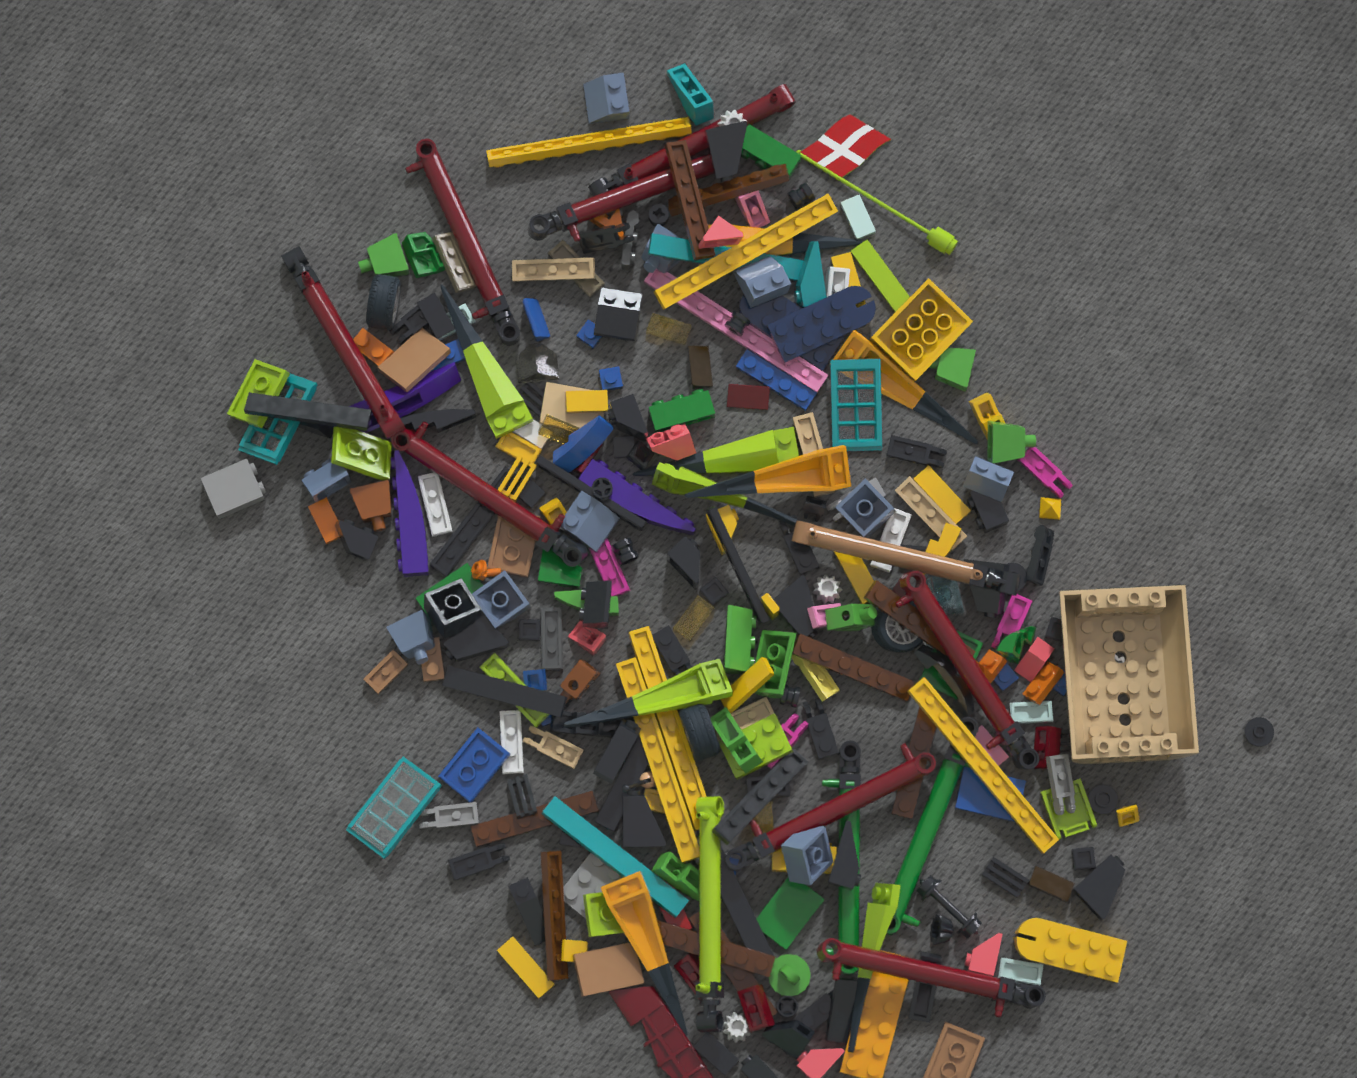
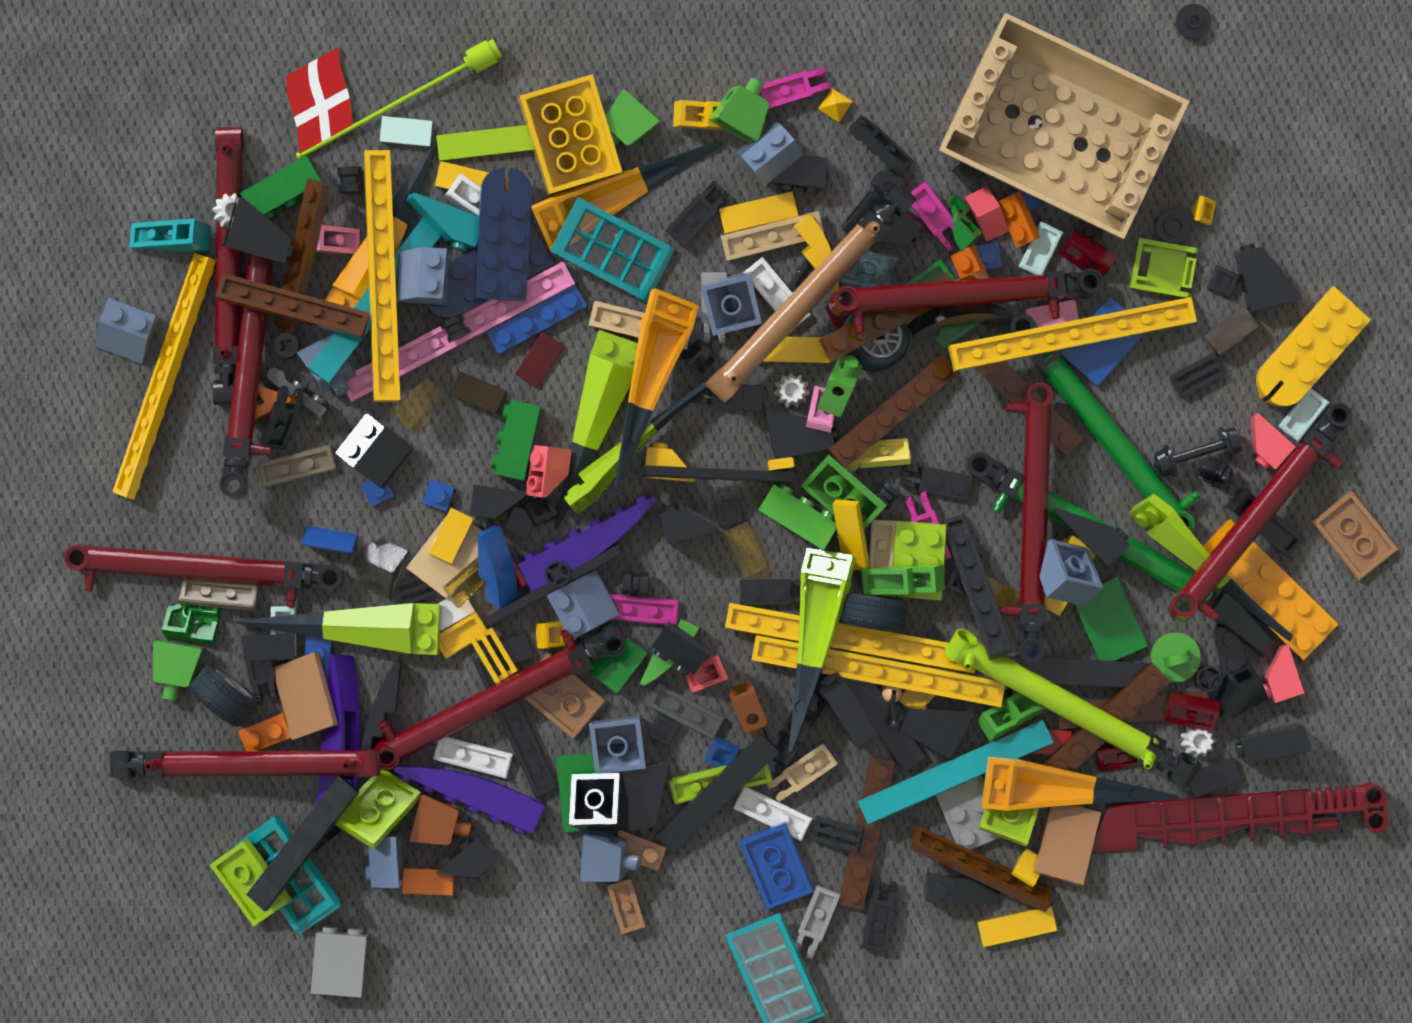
camera: 55 degrees left, 10 degrees up
(480, 571) = (572, 748): orange plate -> none
(553, 269) = (286, 492): tan plate -> none
(721, 234) = (351, 294): coral slope -> none
(1061, 783) = (1135, 261): light grey hinge -> none

